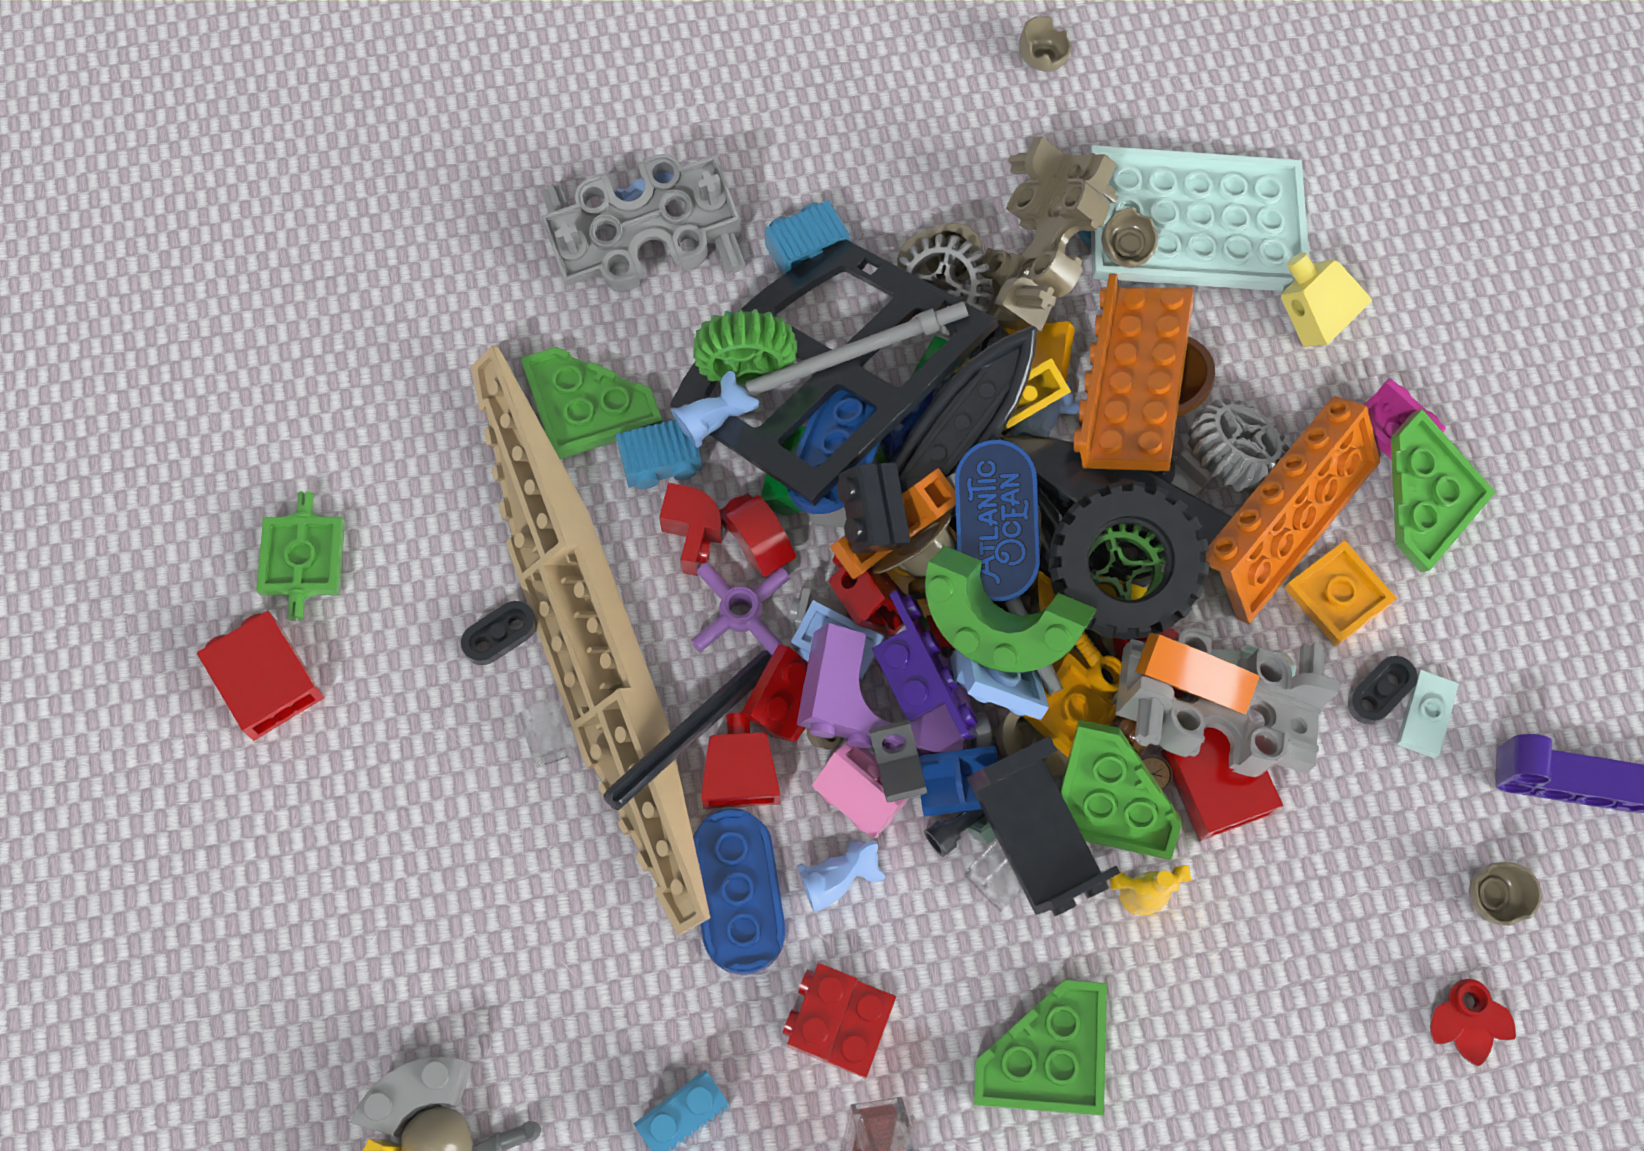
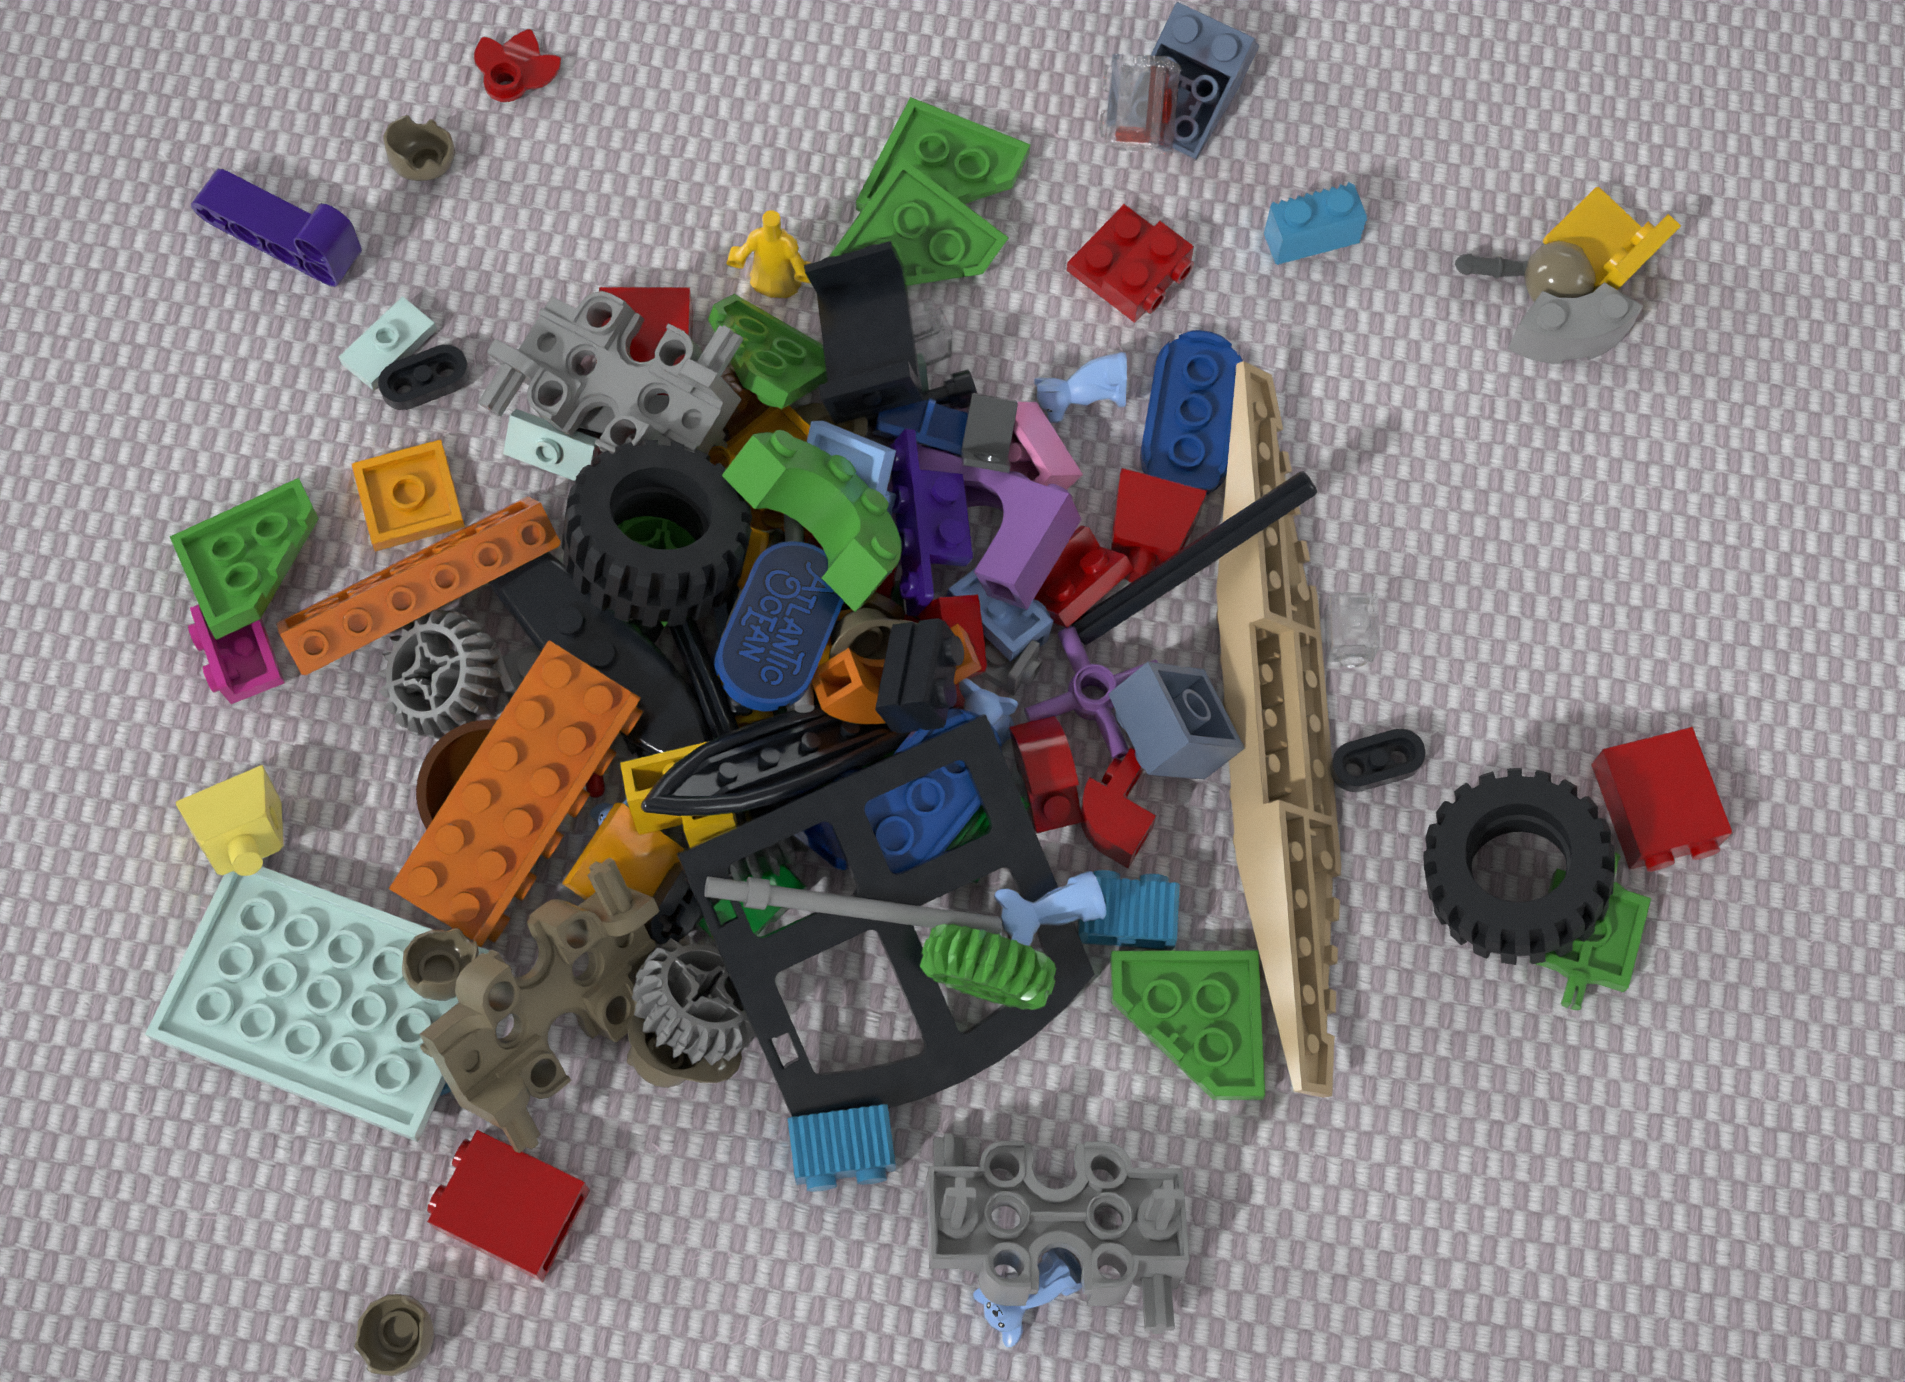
camera: 160 degrees left, 0 degrees up
(354, 517) = (1532, 807): none -> black tyre
(665, 588) = (1175, 721): none -> sand blue brick
(815, 556) = (993, 706): none -> light blue animal
(1004, 128) = (507, 1204): none -> red brick
(1040, 965) = (927, 226): none -> bright green plate
(1197, 673) = (645, 390): slope -> none

